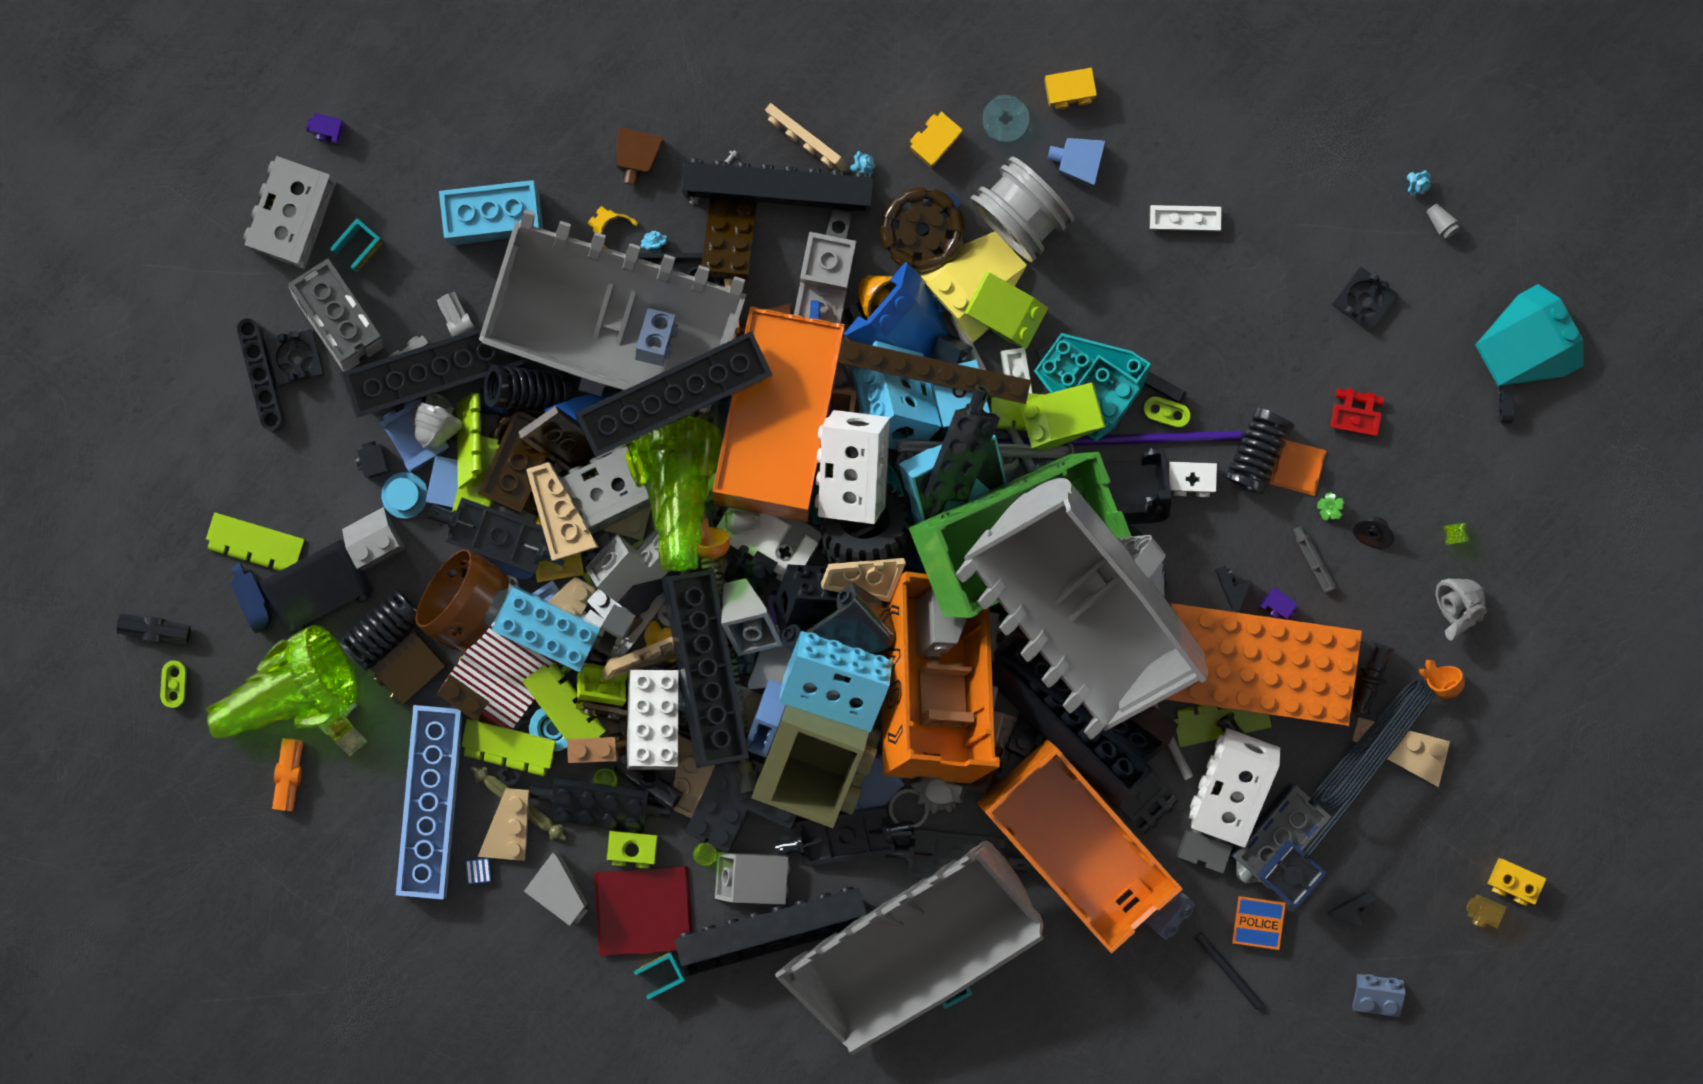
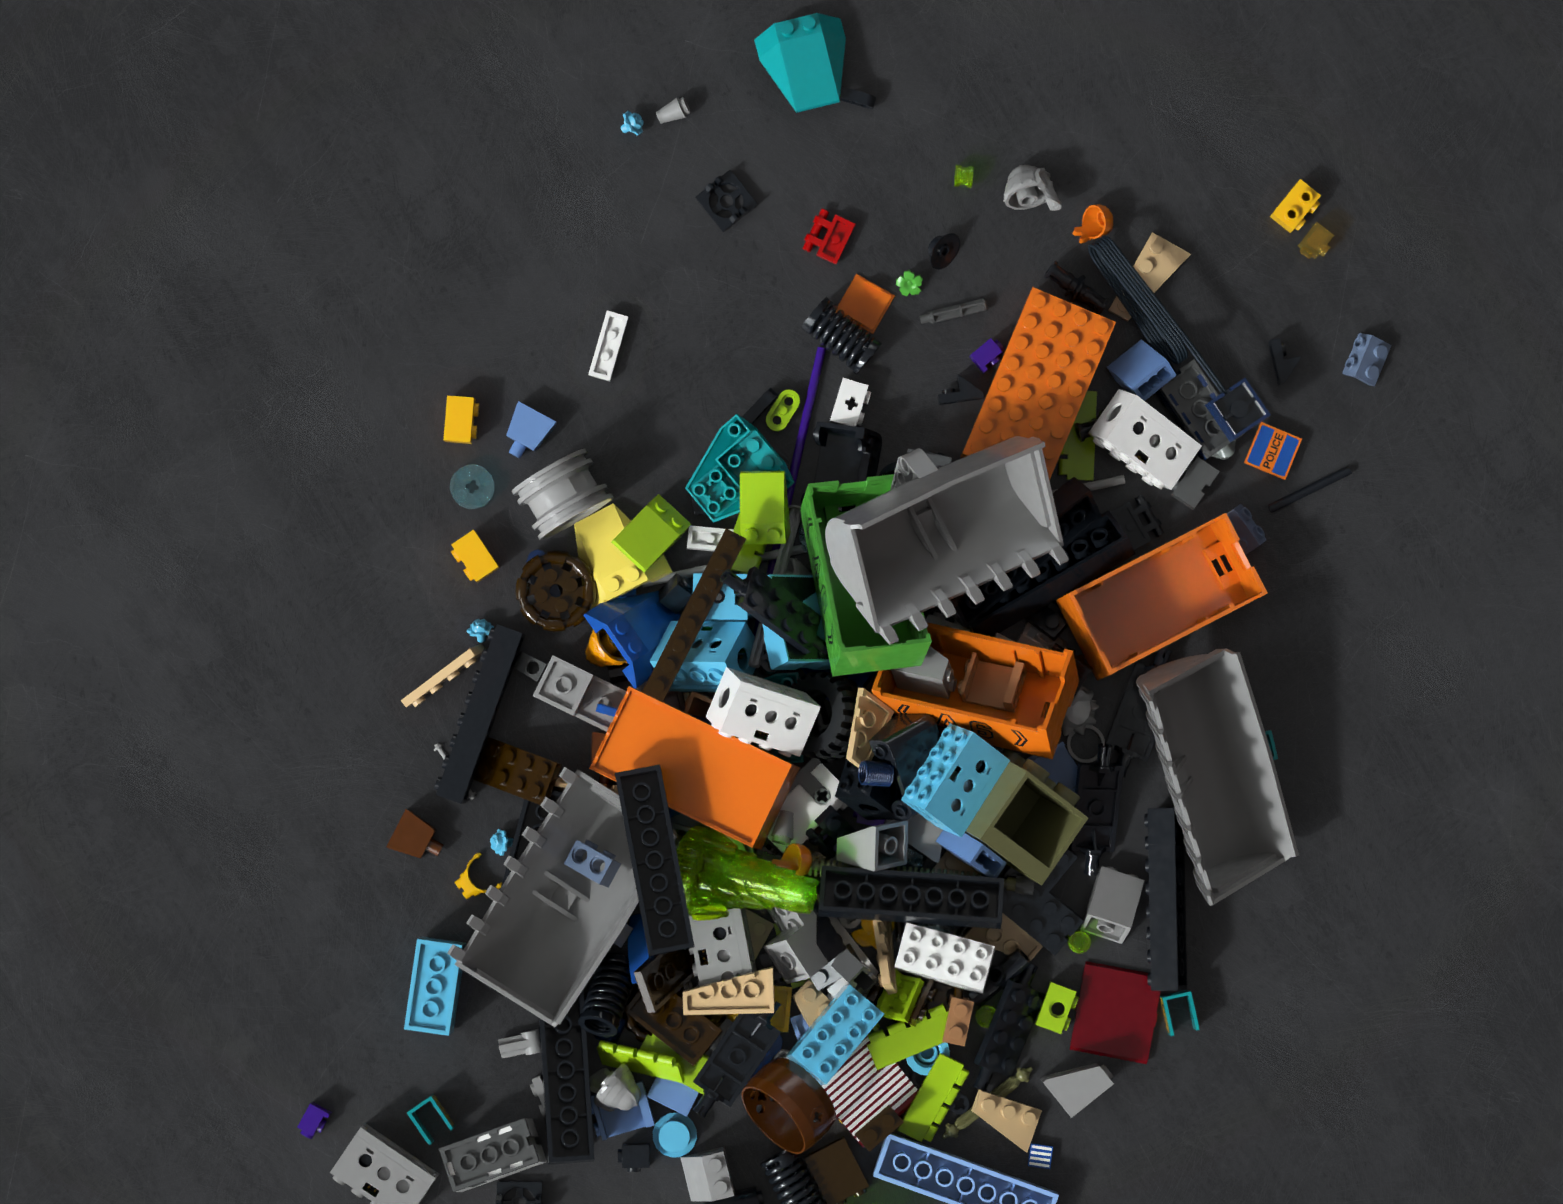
camera: 75 degrees left, 0 degrees up
(821, 598) = (876, 773): none -> dark blue piece
(1305, 766) = (1141, 370): none -> medium blue brick

